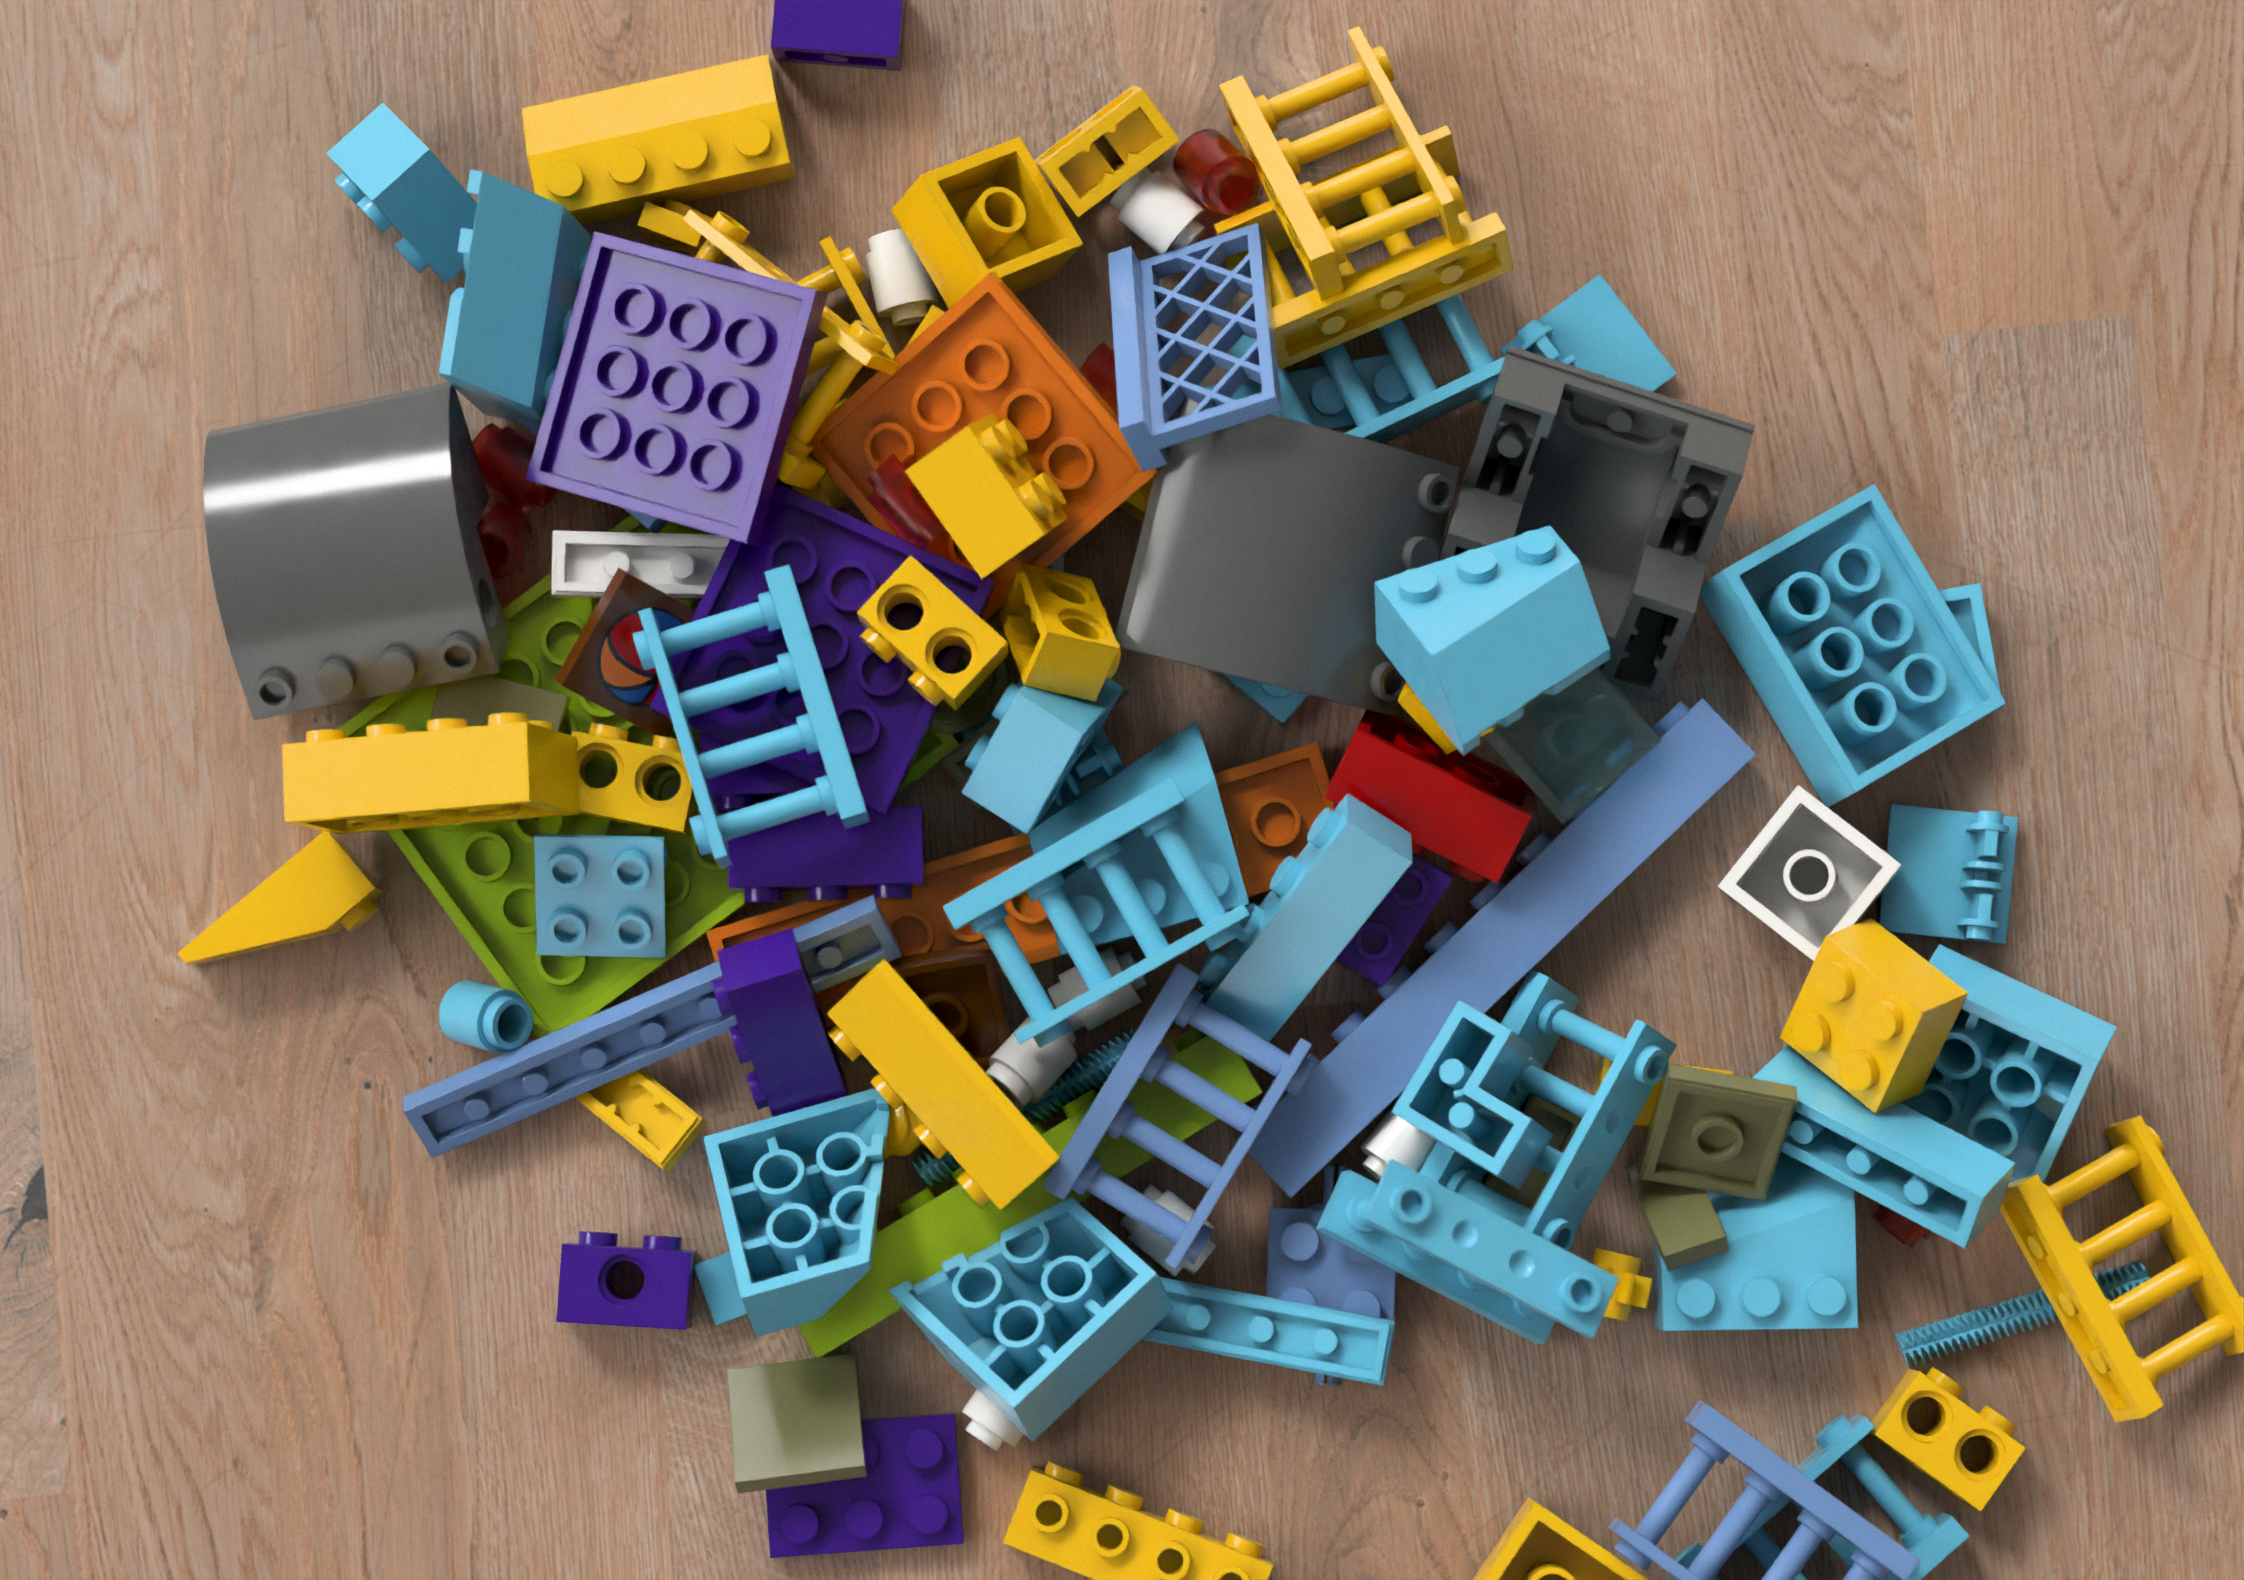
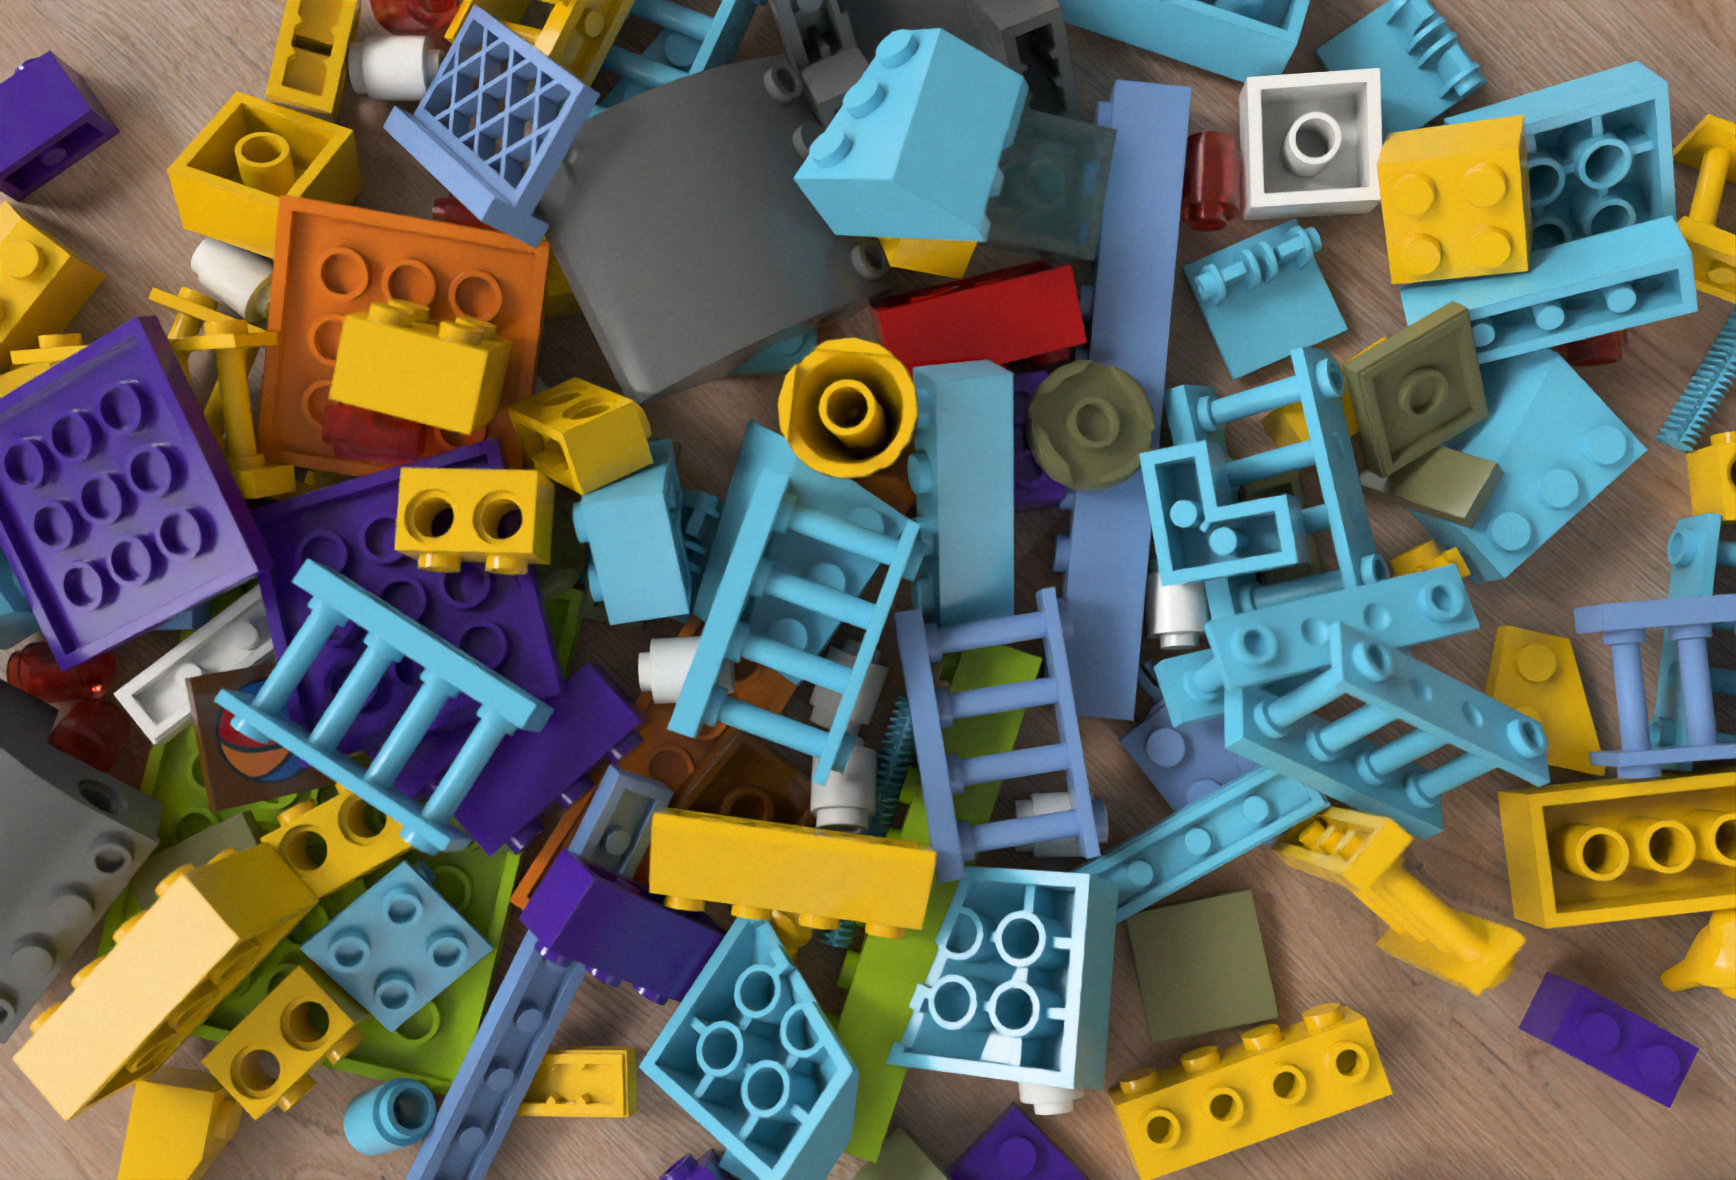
camera: 40 degrees left, 0 degrees up
(465, 878) = (284, 1030): none -> yellow brick
(978, 860) = (667, 666): none -> white brick
(1185, 1430) = (1200, 965): none -> olive tile
(1252, 770) = (848, 408): none -> yellow cone
(1359, 1420) = (1365, 857): none -> yellow fence
(1425, 1377) = (1384, 778): none -> medium azure fence
(1446, 947) = (1089, 425): none -> olive tile
(1617, 1455) = (1542, 680): none -> yellow wing
(1680, 964) = (1265, 297): none -> medium azure hinge
(1713, 837) = (1210, 181): none -> clear red brick

